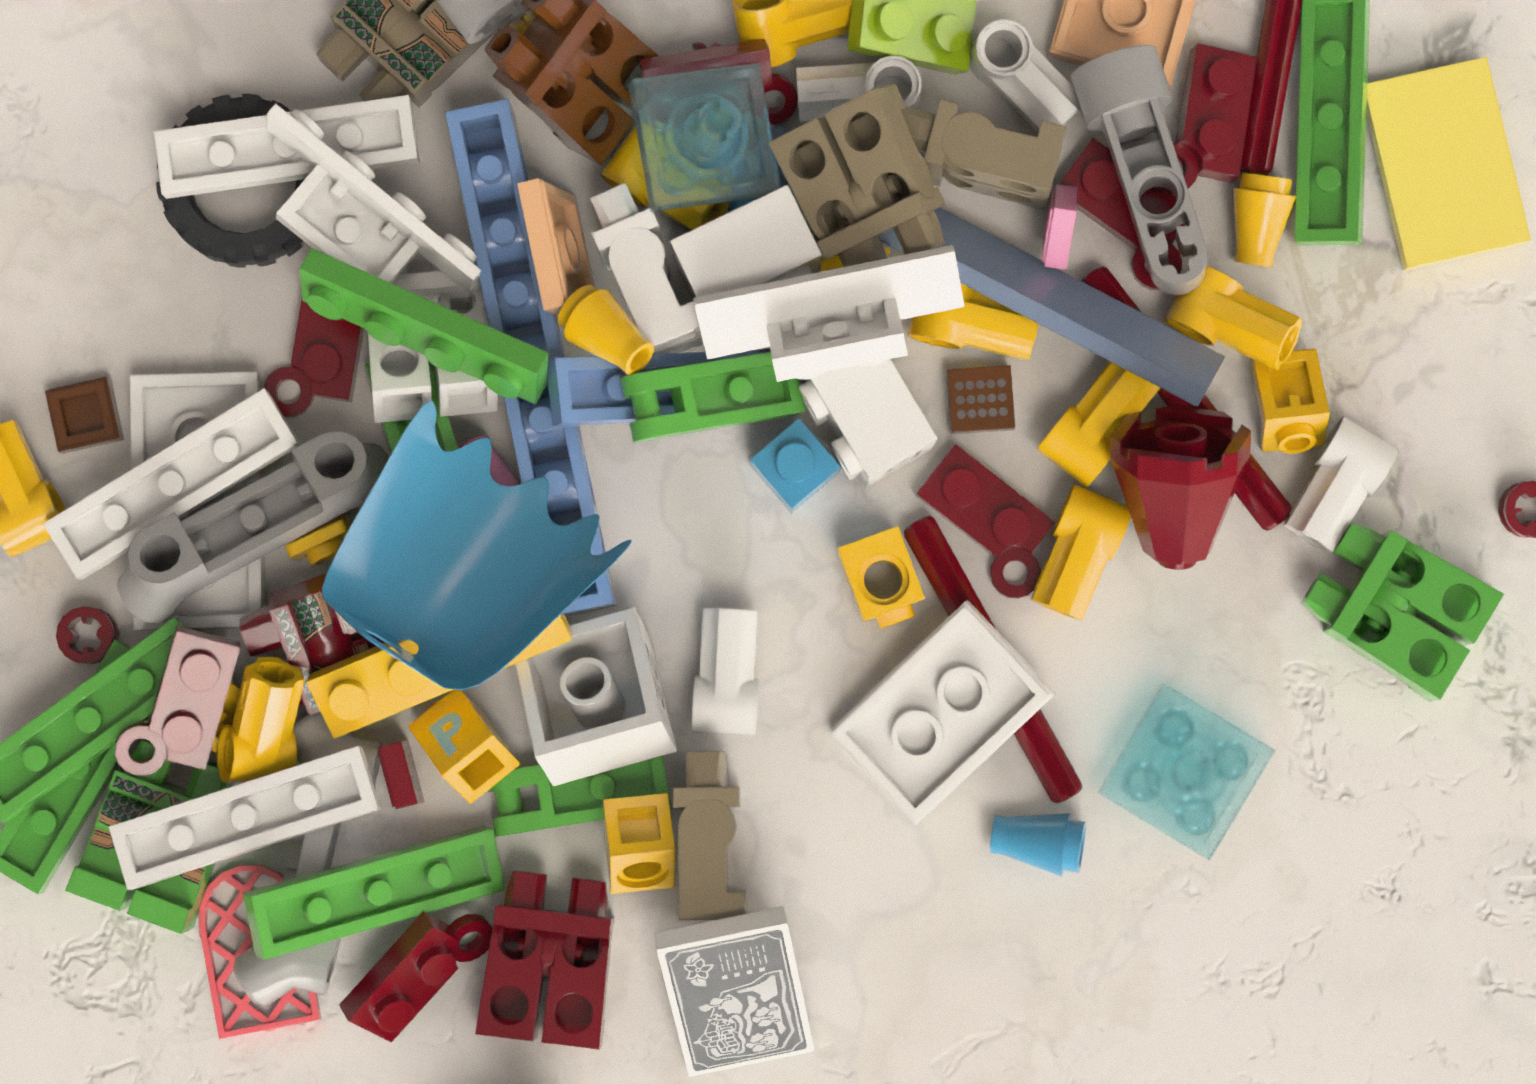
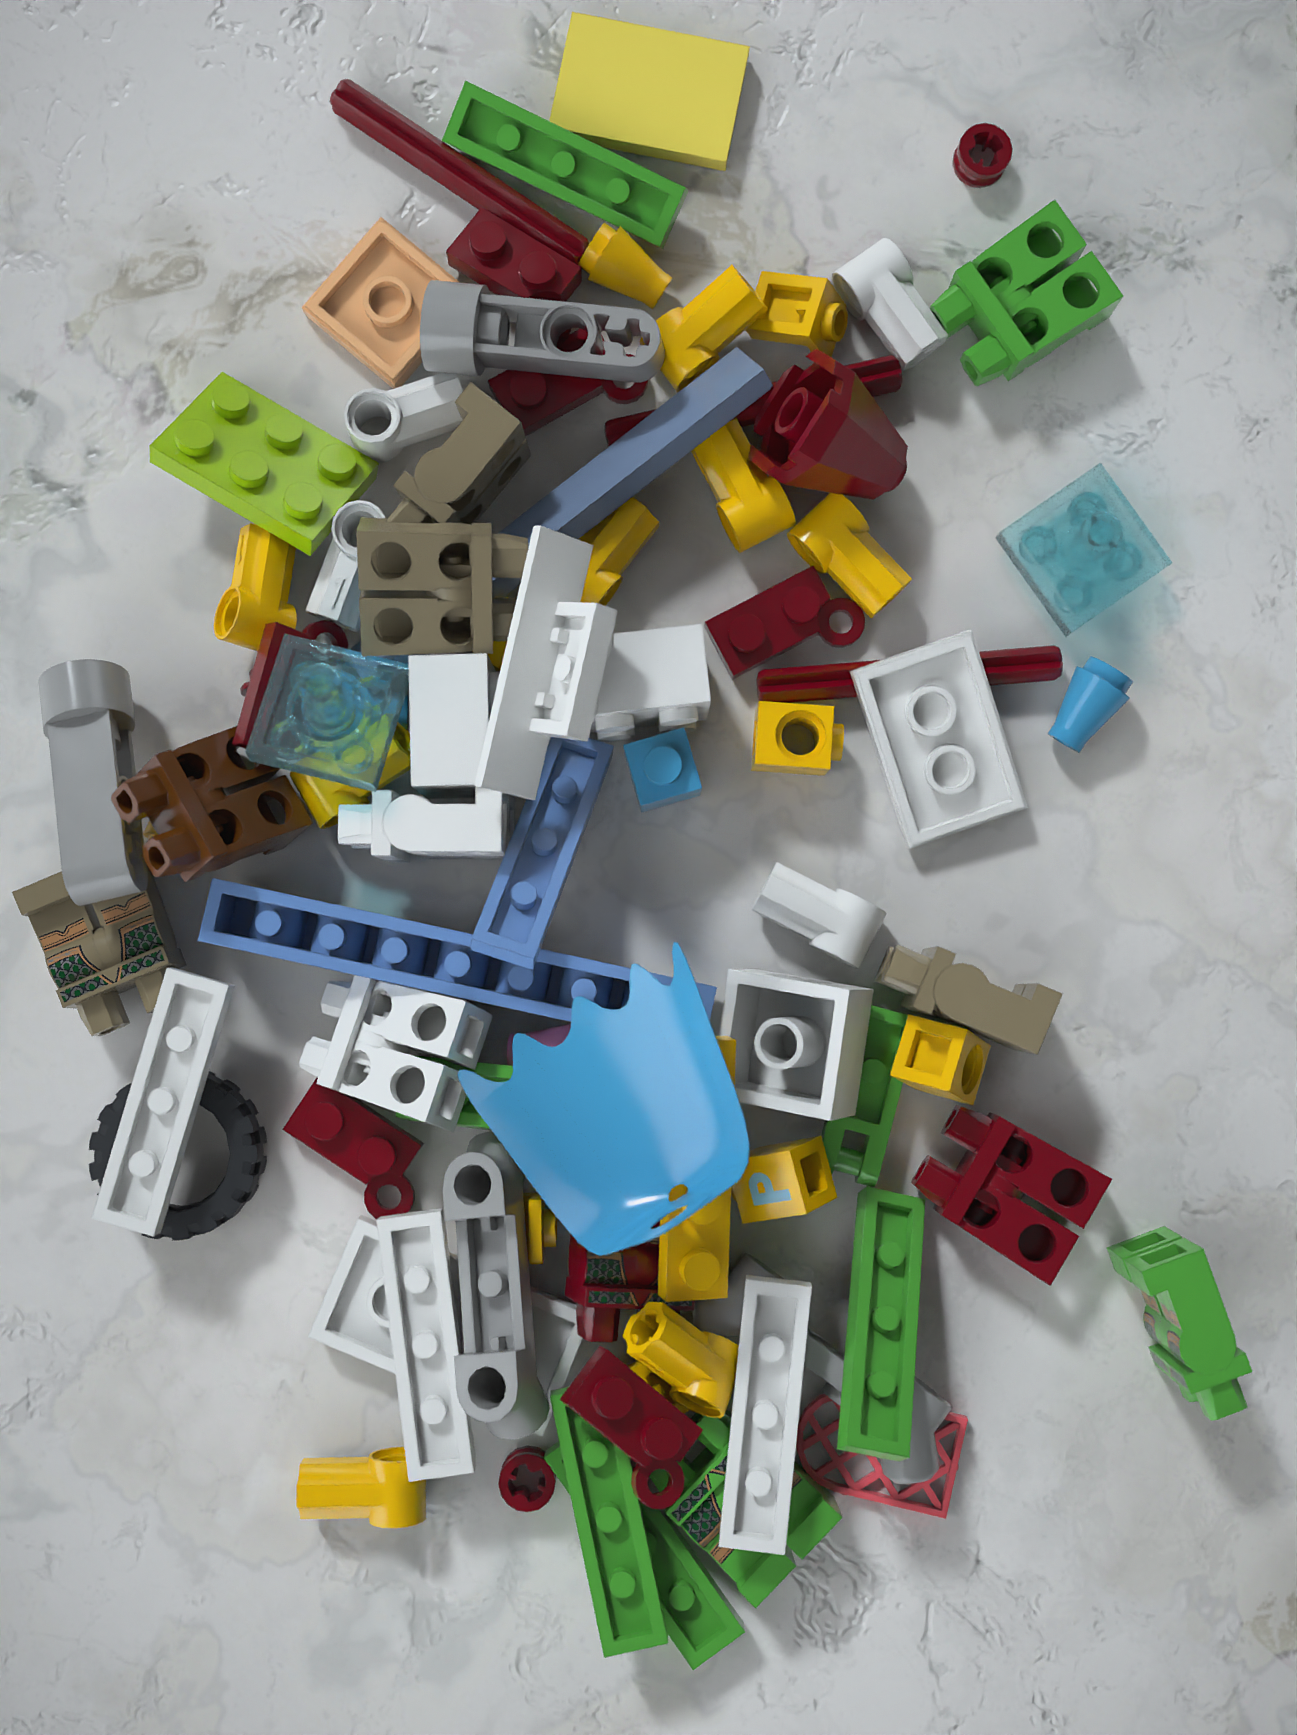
camera: 70 degrees left, 0 degrees up
(84, 415) = (325, 1393): reddish brown tile -> none
(353, 218) = (259, 1067): white bracket -> none
(400, 774) = (782, 1248): dark red tile -> none
(413, 972) = (966, 1316): dark red hinge -> none
(439, 333) = (388, 1045): bright green plate -> none
(555, 242) = (371, 894): light nougat tile -> none
(602, 327) = (464, 882): yellow cone -> none
(710, 396) = (568, 814): bright green plate -> none
(734, 991) = (1113, 1031): tile -> none
(980, 399) = (674, 583): reddish brown tile -> none
(1059, 226) = (556, 441): bright pink tile -> none

